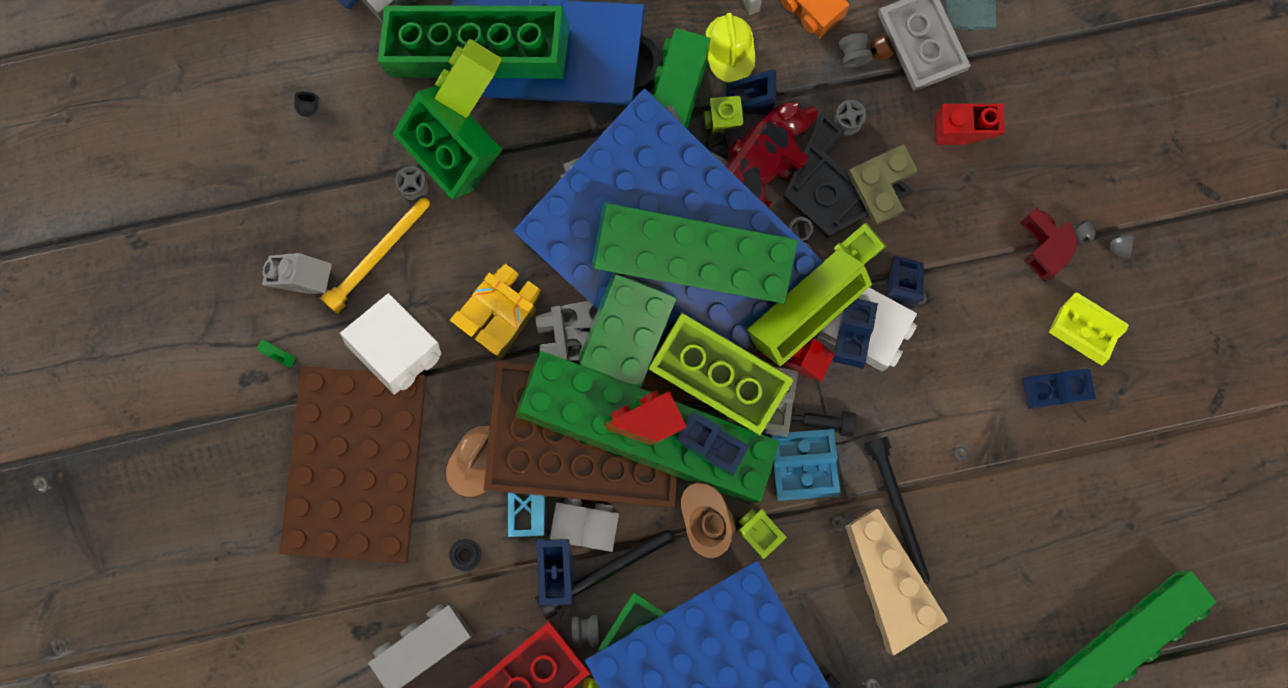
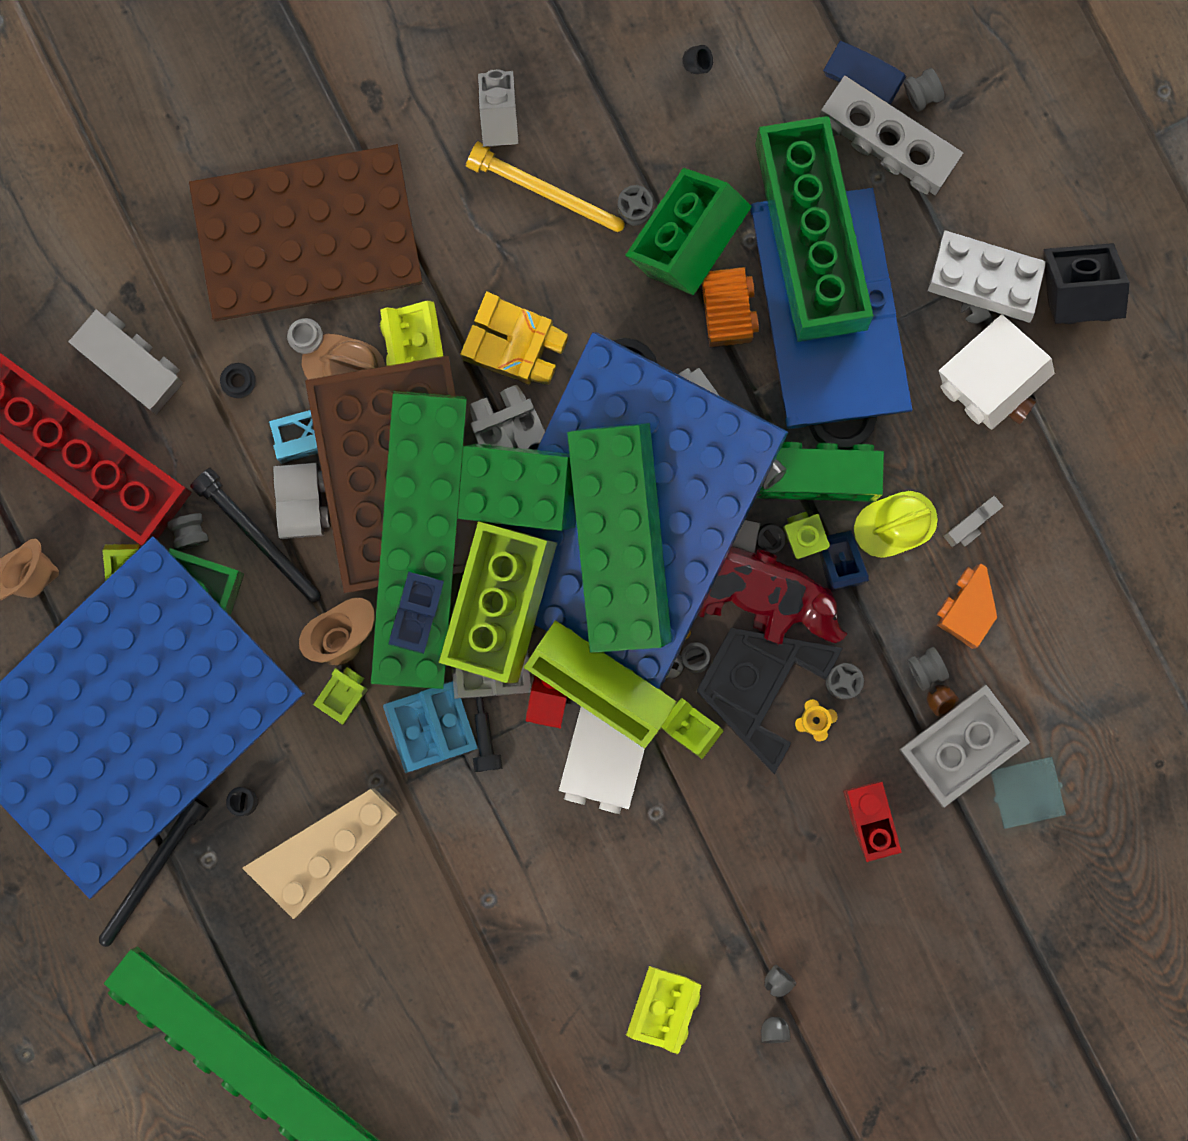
camera: 75 degrees right, 5 degrees up
(276, 354) = (405, 106): green tile -> none
(391, 344) = (444, 236): white brick -> none
(443, 486) = (305, 336): none -> light grey plate
(467, 78) = (759, 233): lime brick -> none
(467, 394) = (411, 333): none -> neon yellow bracket
(519, 129) = (728, 307): none -> orange brick
(555, 571) = (241, 481): dark blue slope -> none
(650, 422) = (418, 536): red slope -> none
(831, 649) = (236, 801): none -> black hinge
(855, 333) = (585, 743): dark blue slope -> none
(874, 140) = (825, 716): none -> yellow plate
(875, 181) = (775, 726): olive plate -> none
(880, 451) = (464, 806): black piece -> none
(905, 282) = (668, 790): dark blue slope -> none
(1056, 244) = (749, 954): dark red brick -> none
(1059, 388) = (589, 993): dark blue slope -> none

